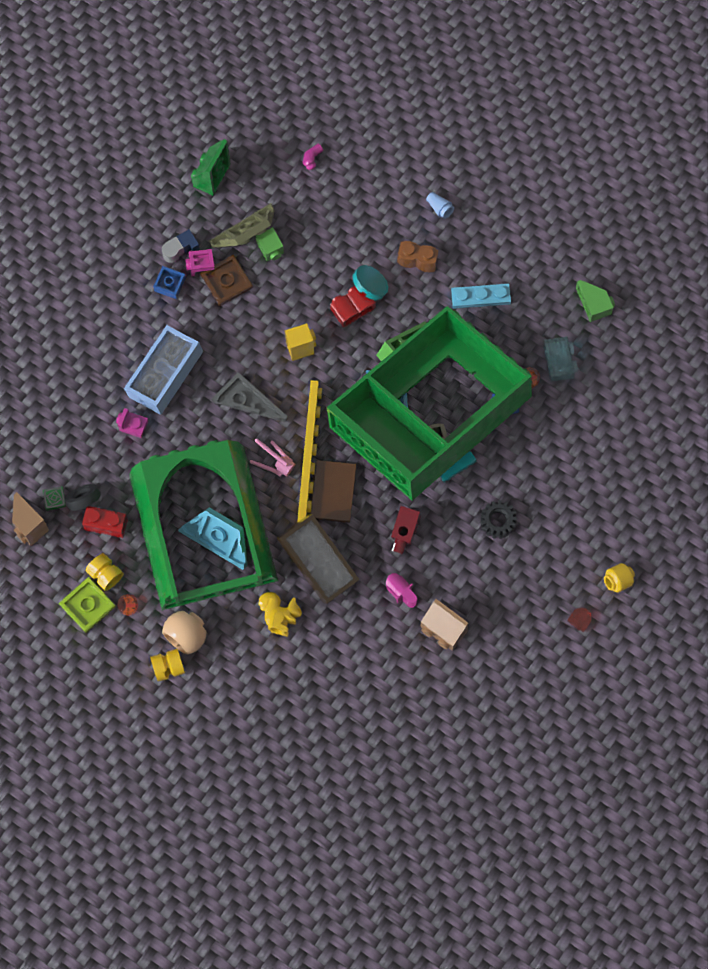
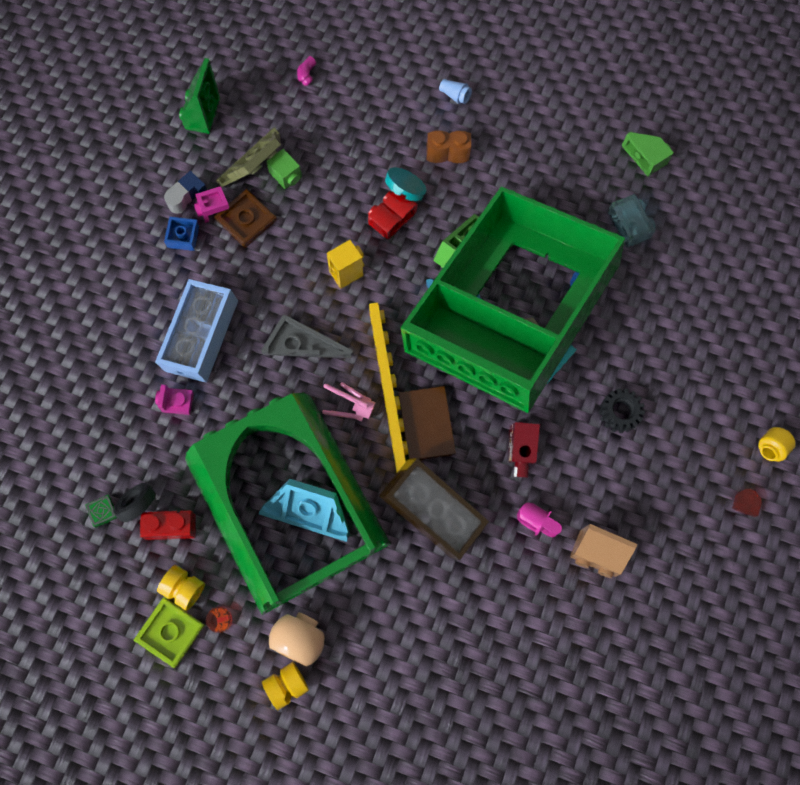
camera: 20 degrees left, 0 degrees up
(27, 522) = (70, 550): medium nougat slope -> none
(276, 616) = (402, 589): yellow animal -> none
(480, 296) = (527, 173): medium azure plate -> none

